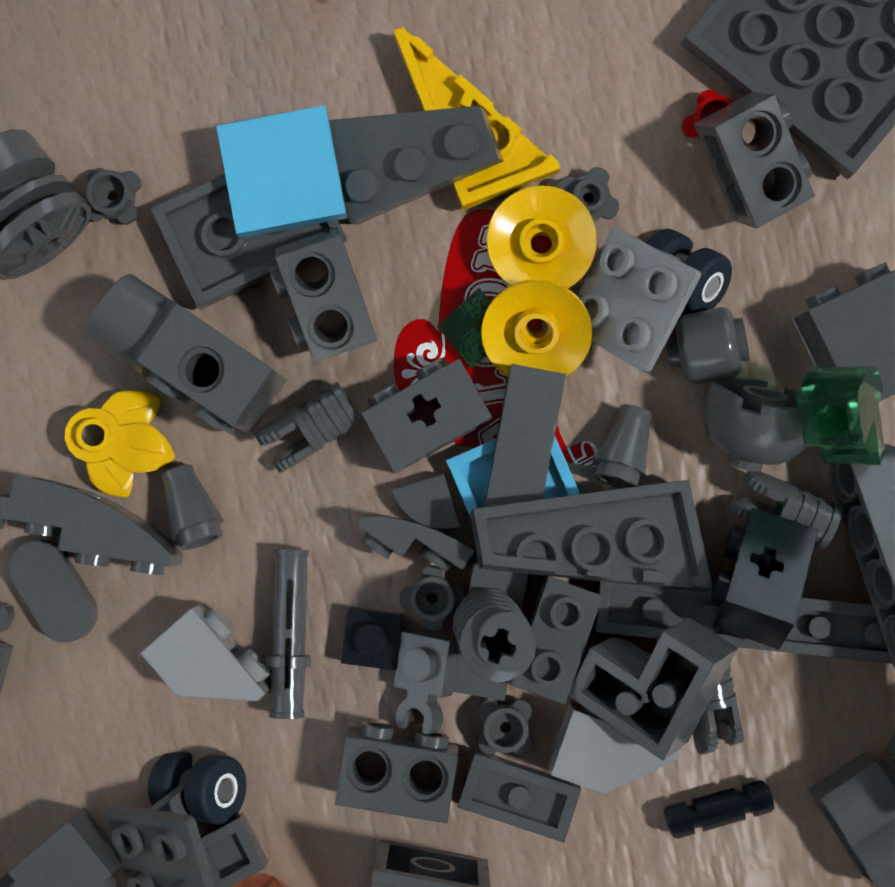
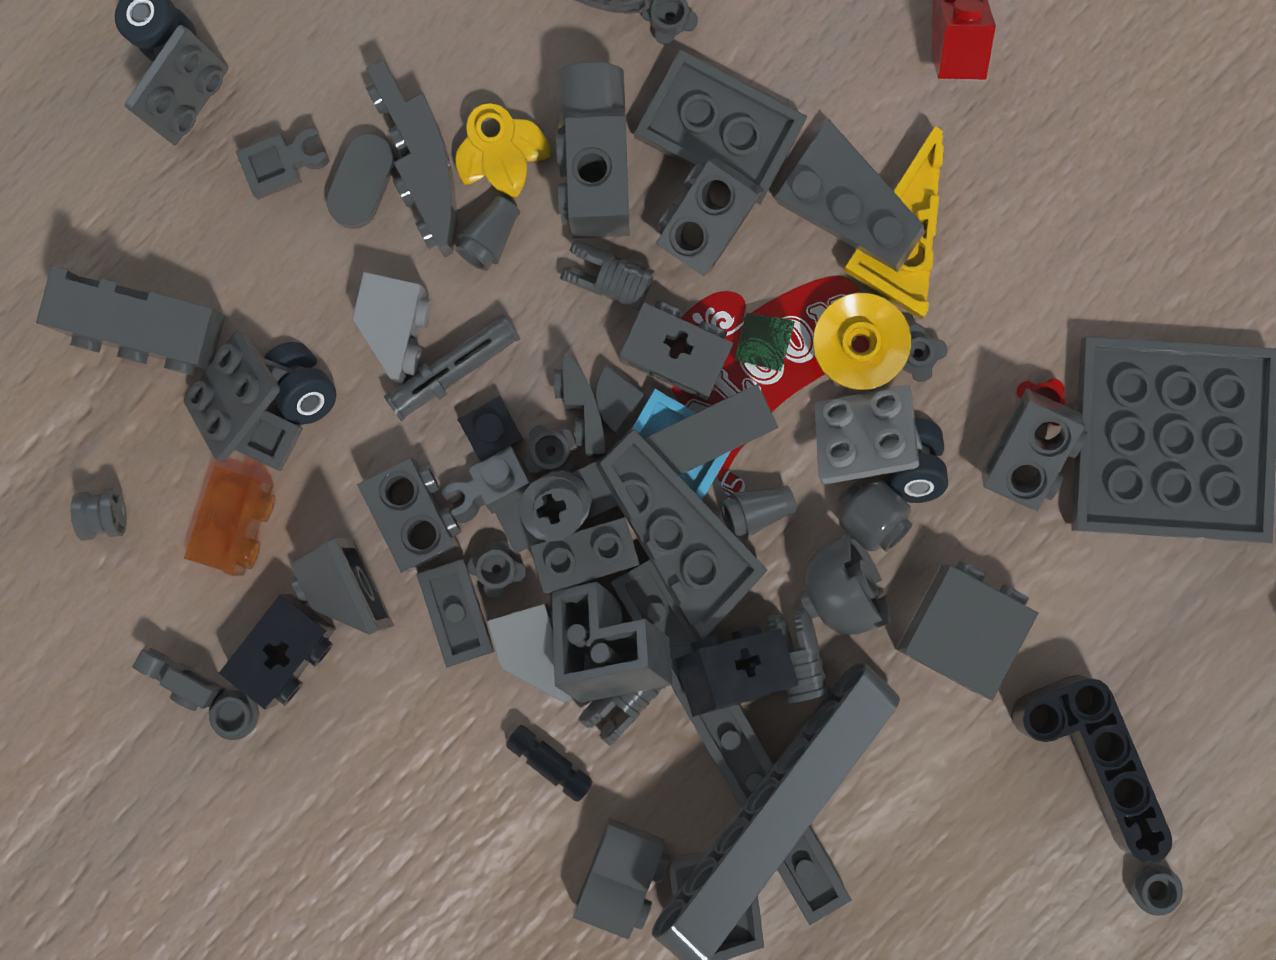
camera: 55 degrees right, 0 degrees up
(281, 171) = (774, 121): medium azure tile -> none
(554, 349) = (775, 372): yellow dish -> none
(842, 413) = (892, 637): clear green brick -> none

